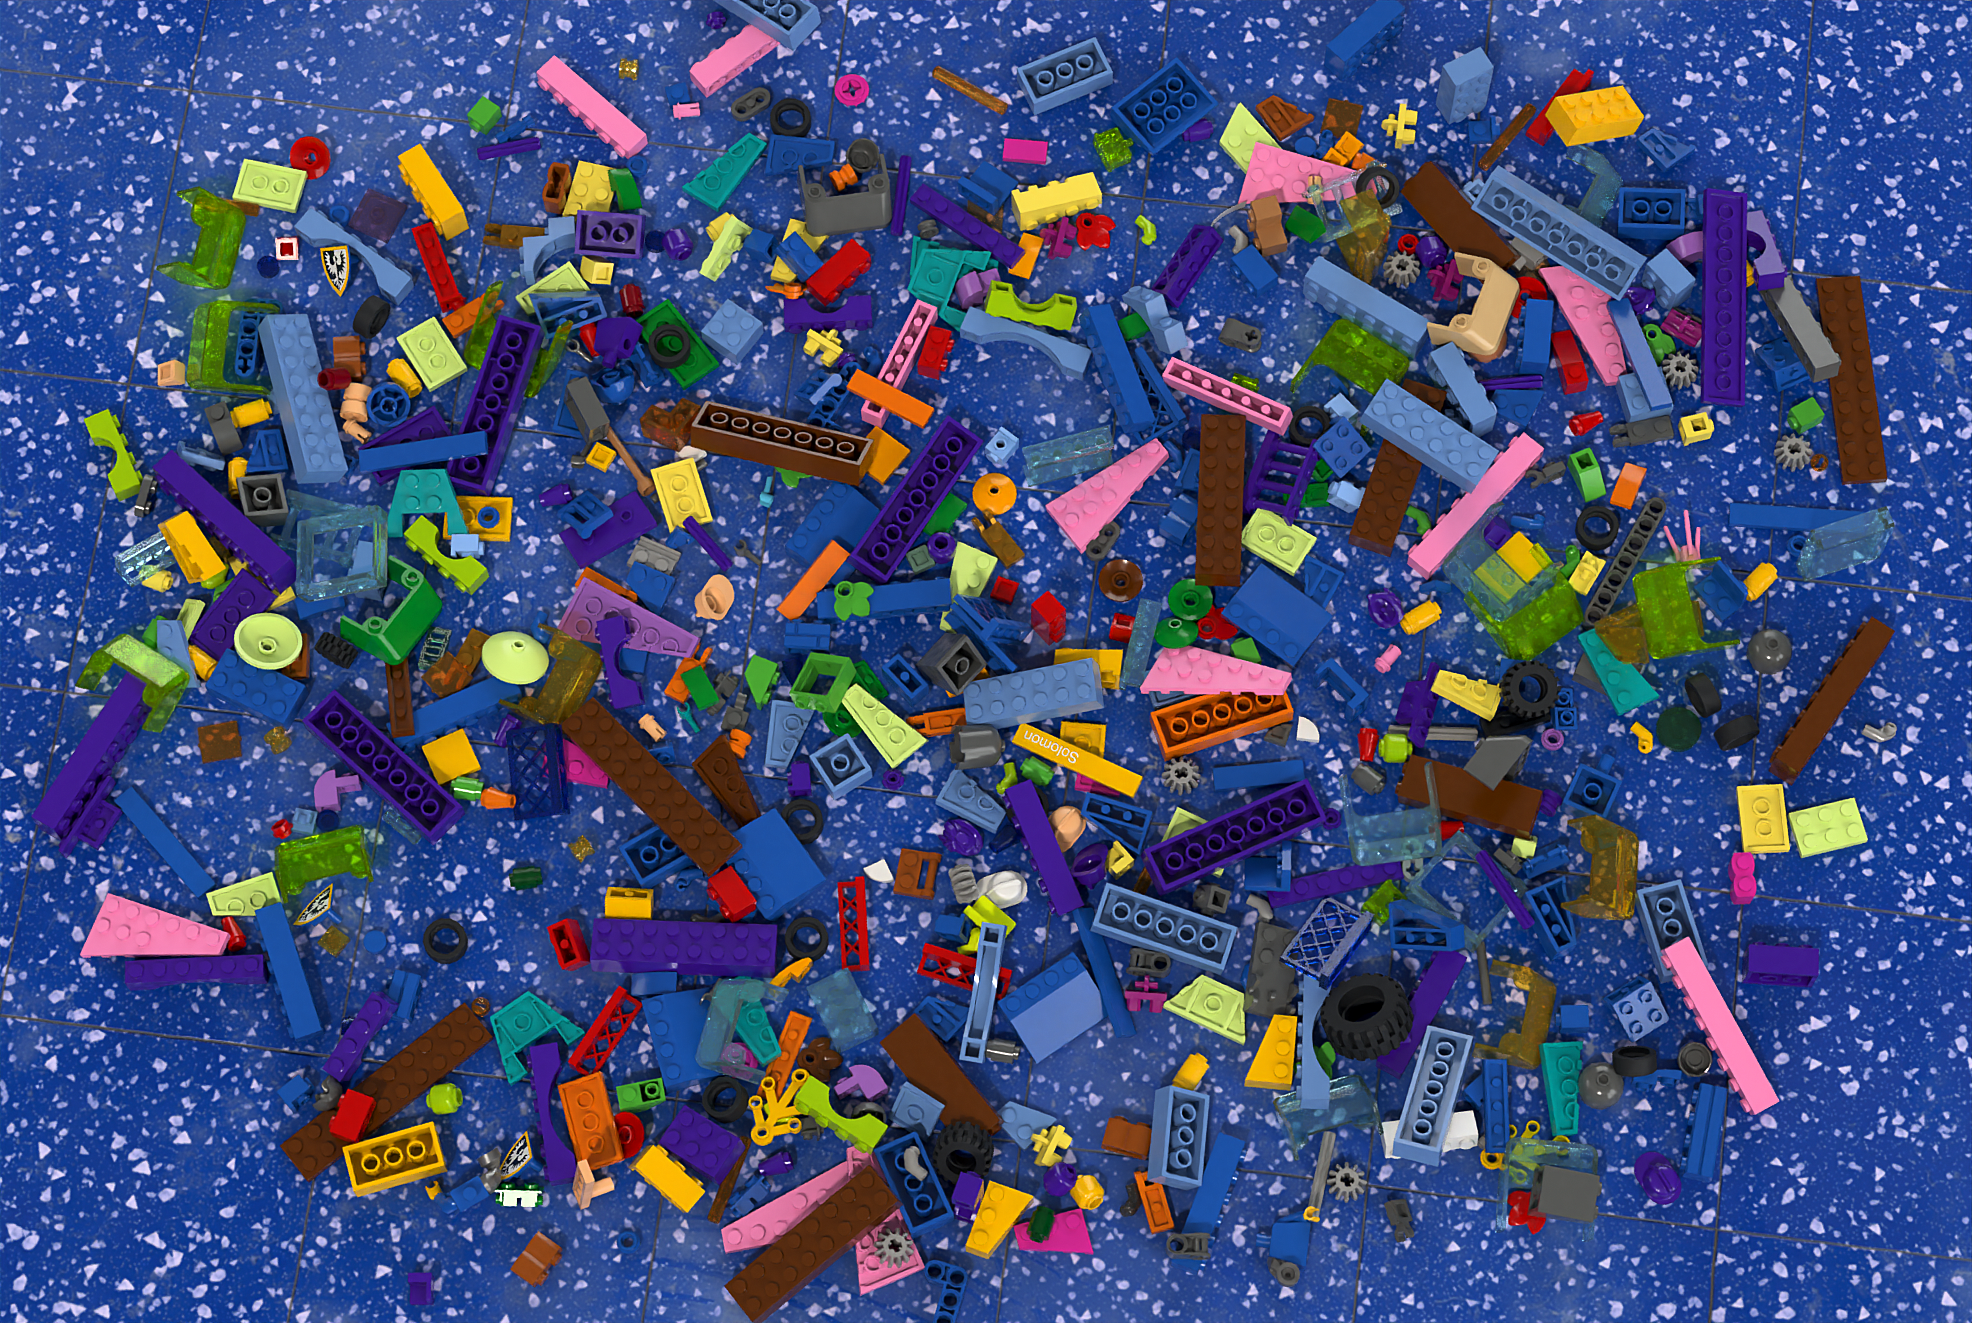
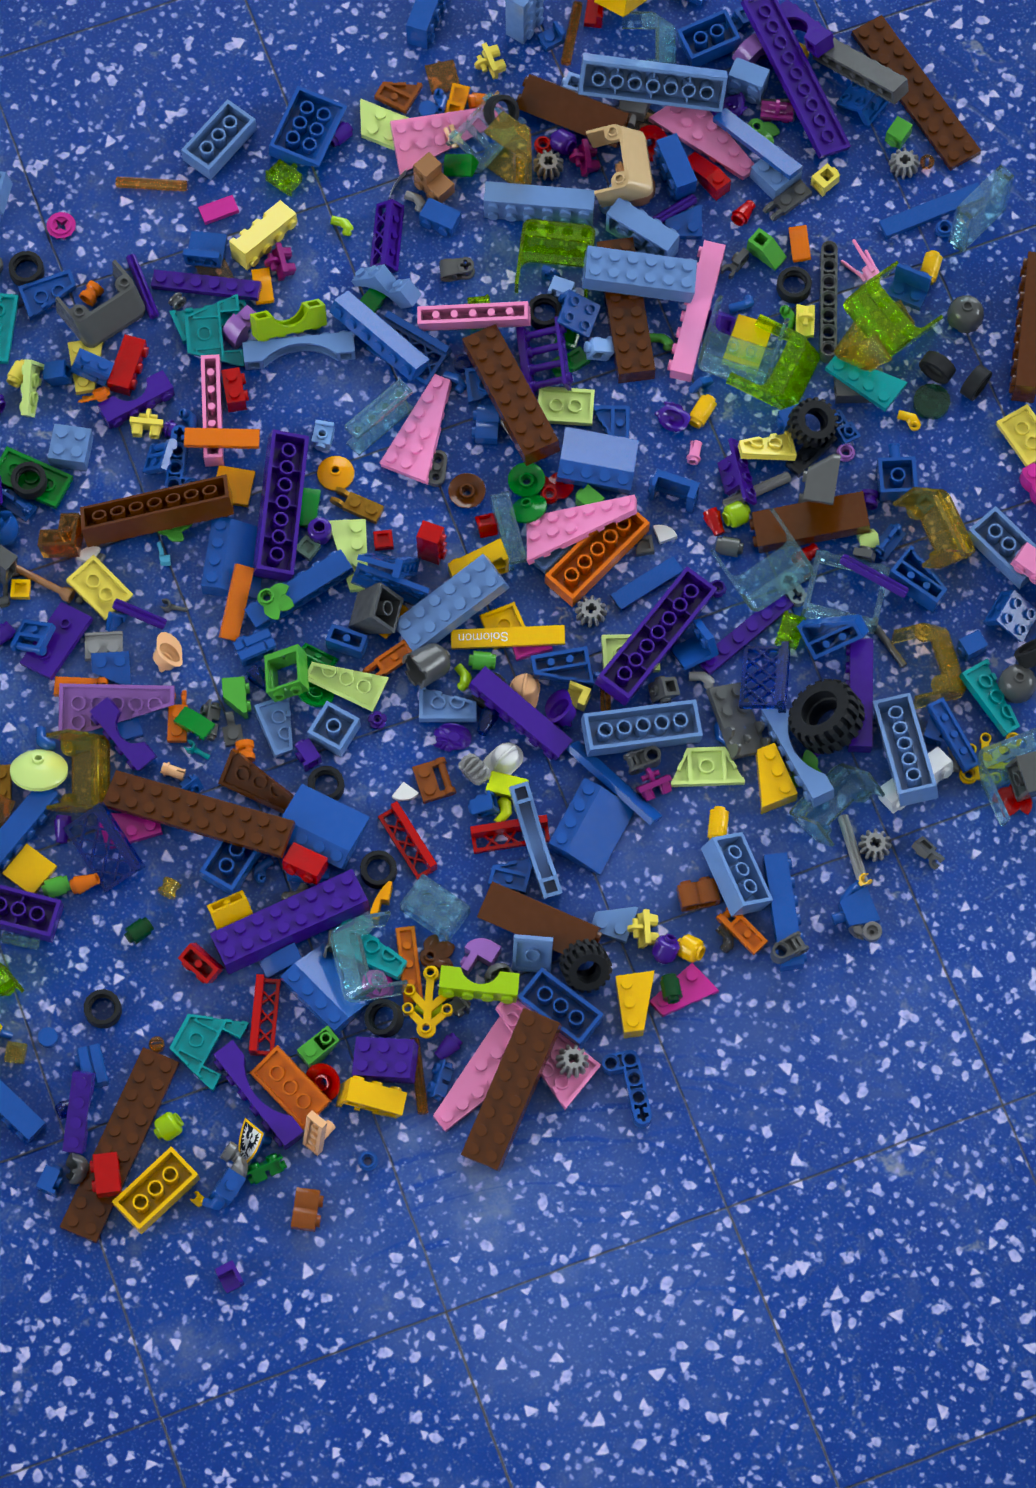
camera: 30 degrees left, 0 degrees up
(862, 155) = (97, 269): dark grey hair -> none
(911, 1163) = (552, 991): light grey arm -> none
(967, 1196) = (609, 994): dark purple arch -> none
(1002, 1050) = (571, 877): dark grey brick -> none
(1096, 233) = (305, 244): red plate -> none
(1683, 363) = (797, 142): light grey gear -> none

